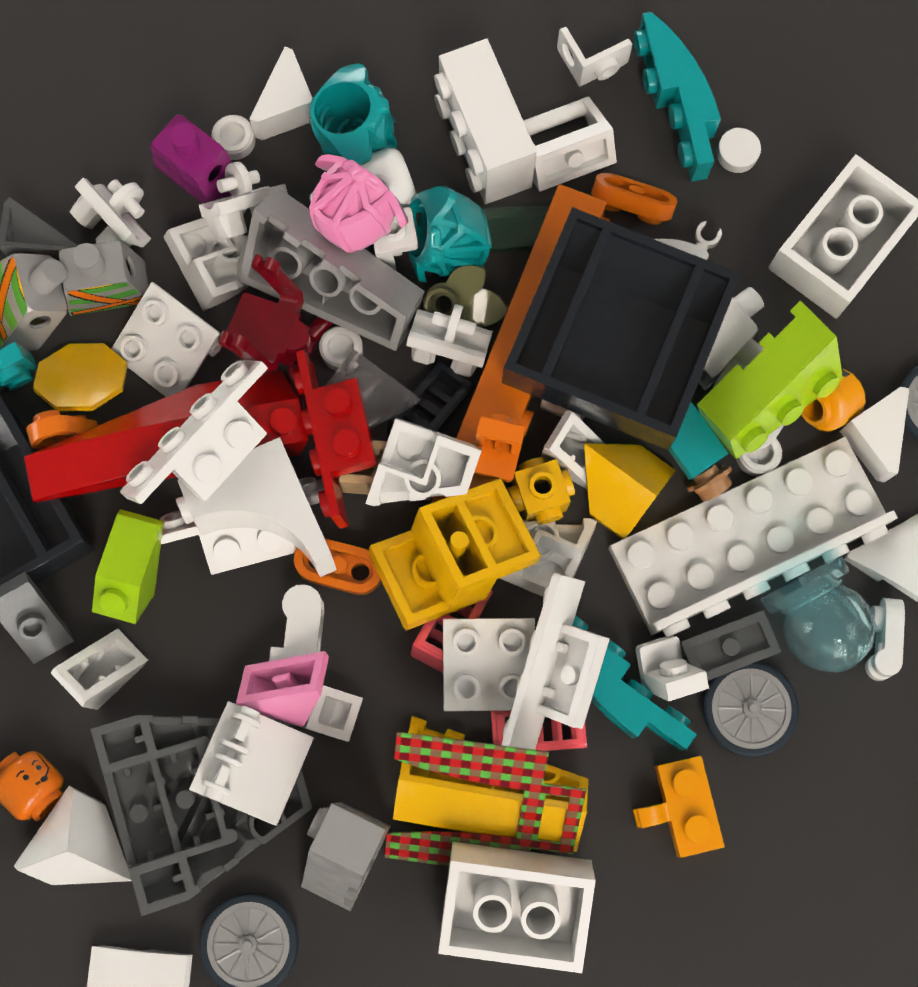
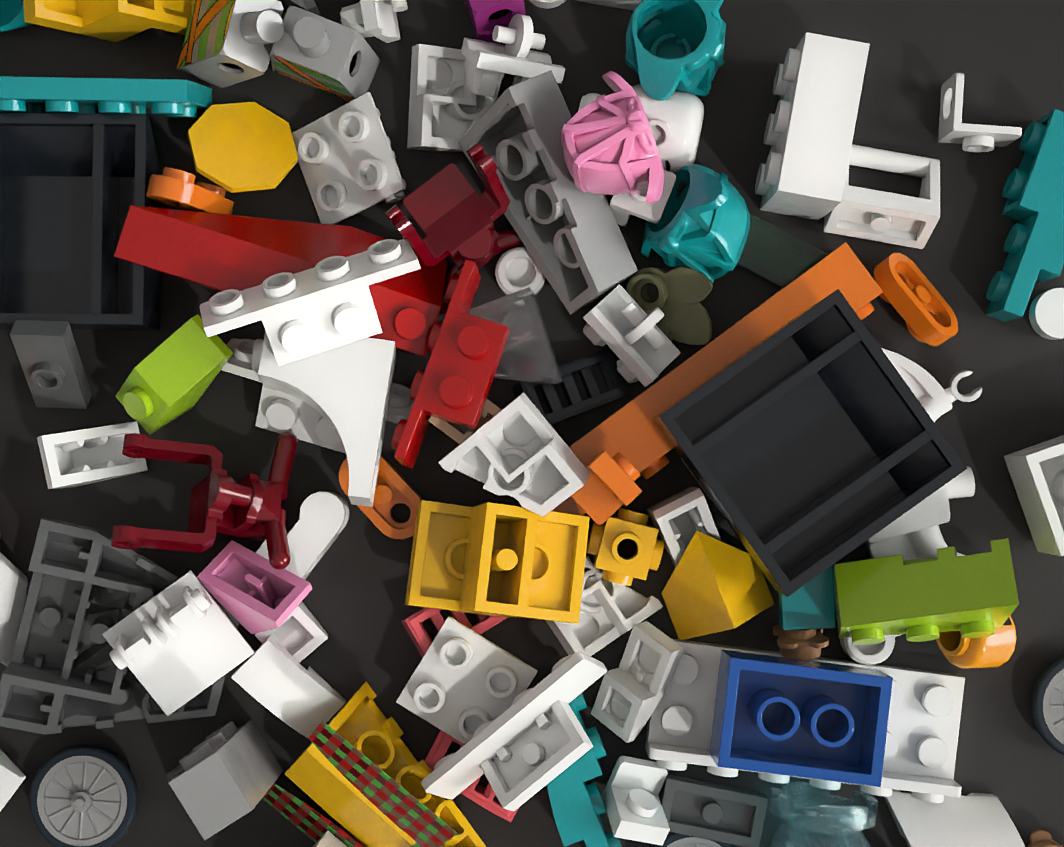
camera: 35 degrees right, 10 degrees up
(219, 641) = (218, 502): none -> dark red piece
(354, 754) = (287, 688): none -> white slope
(615, 588) = (636, 687): none -> white slope
(744, 526) = (800, 718): none -> blue brick
(878, 434) = (1002, 698): white slope -> none

